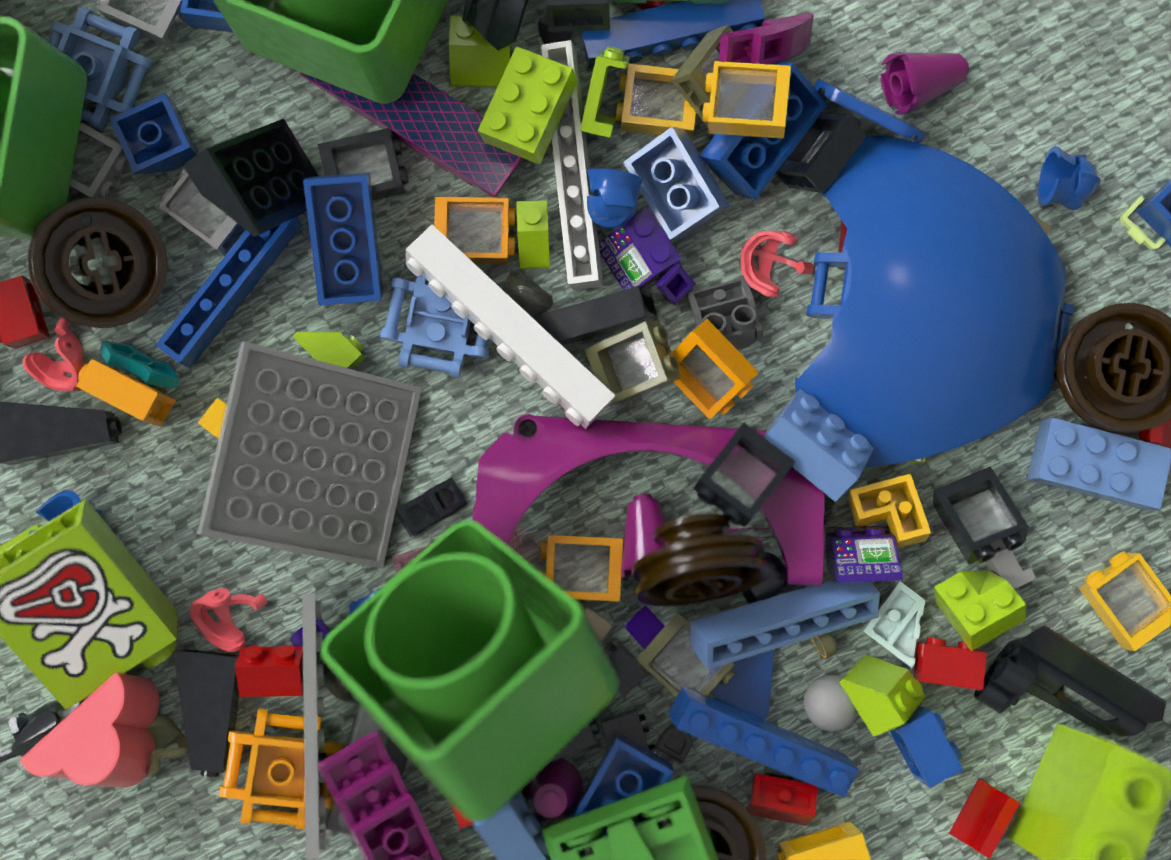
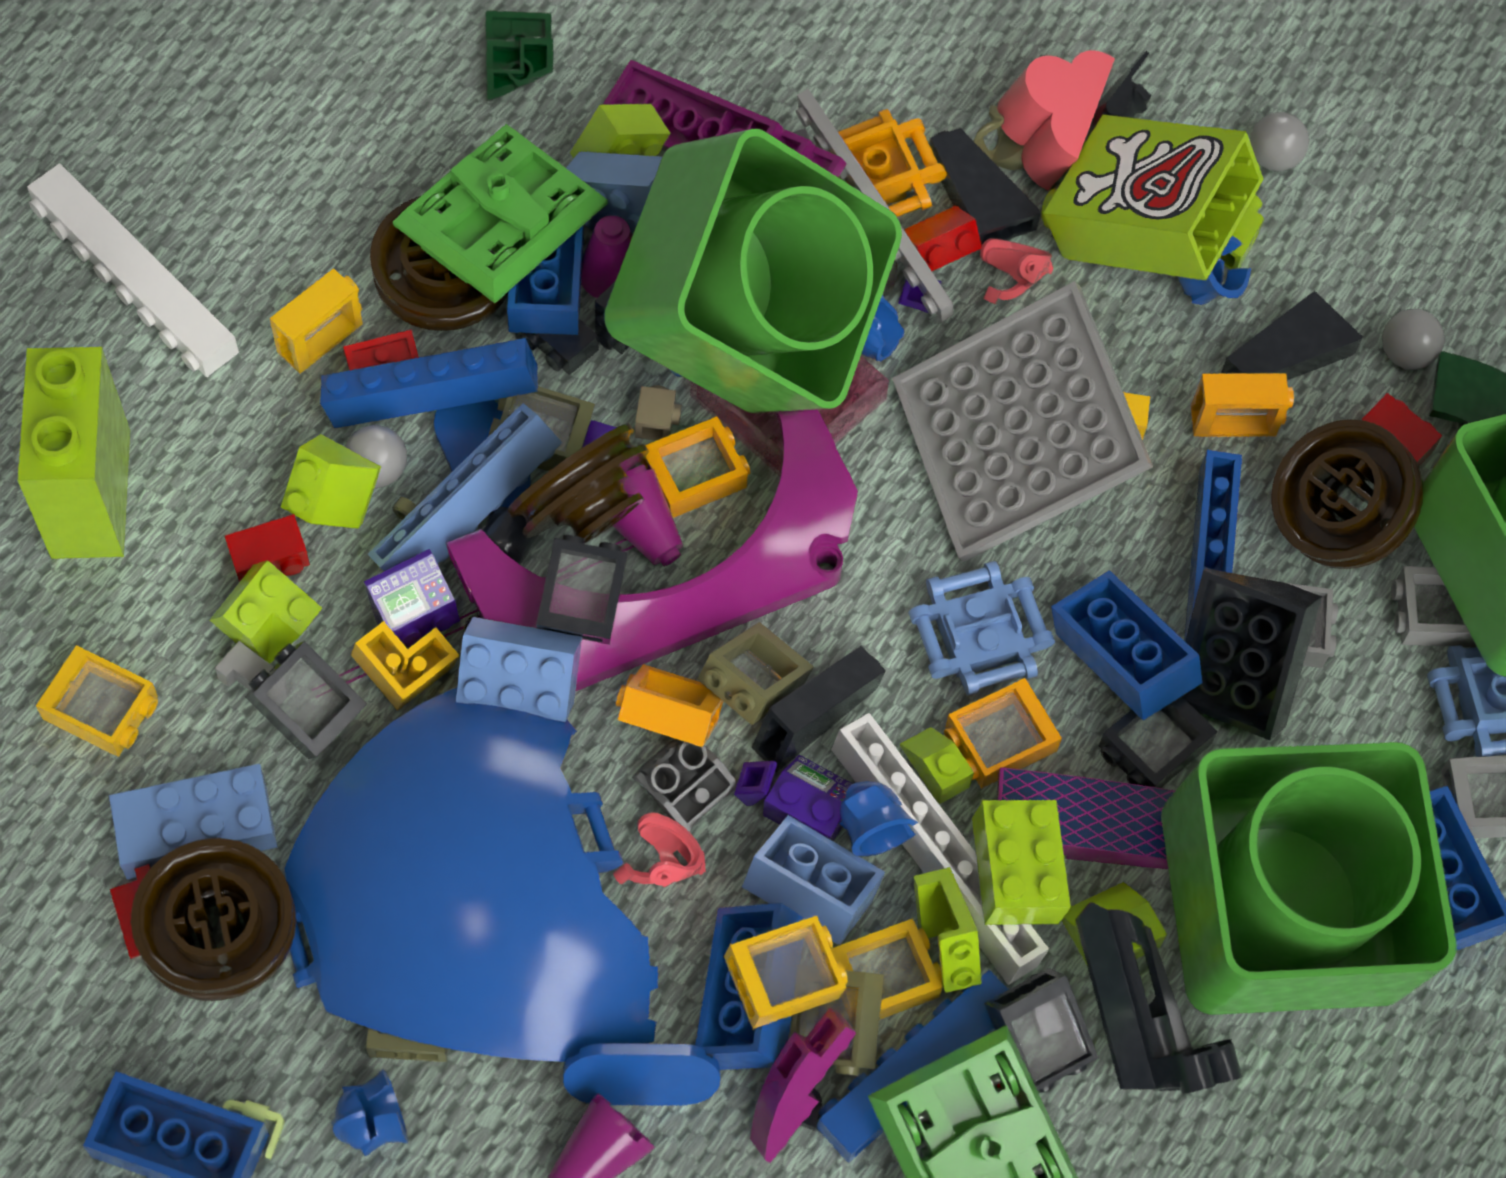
camera: 150 degrees right, 20 degrees down
(51, 372) = (1322, 403): coral helmet -> none
(147, 368) = (1260, 441): teal tile -> none
(154, 136) = (1385, 657): blue slope -> none
(332, 348) = (1071, 545): lime slope -> none
(430, 506) = (880, 455): black slope -> none
(508, 326) = (904, 634): white brick -> none
(527, 294) = (907, 692): clear smoke hair -> none
(626, 666) = (608, 386): black brick -> none
(822, 152) = (670, 990): black window -> none
(898, 623) = (341, 567): light aqua wing -> none
(927, 747) = (261, 452): blue slope -> none
(984, 818) = (164, 433): red panel -> none
(1047, 663) = (135, 591): black panel -> none

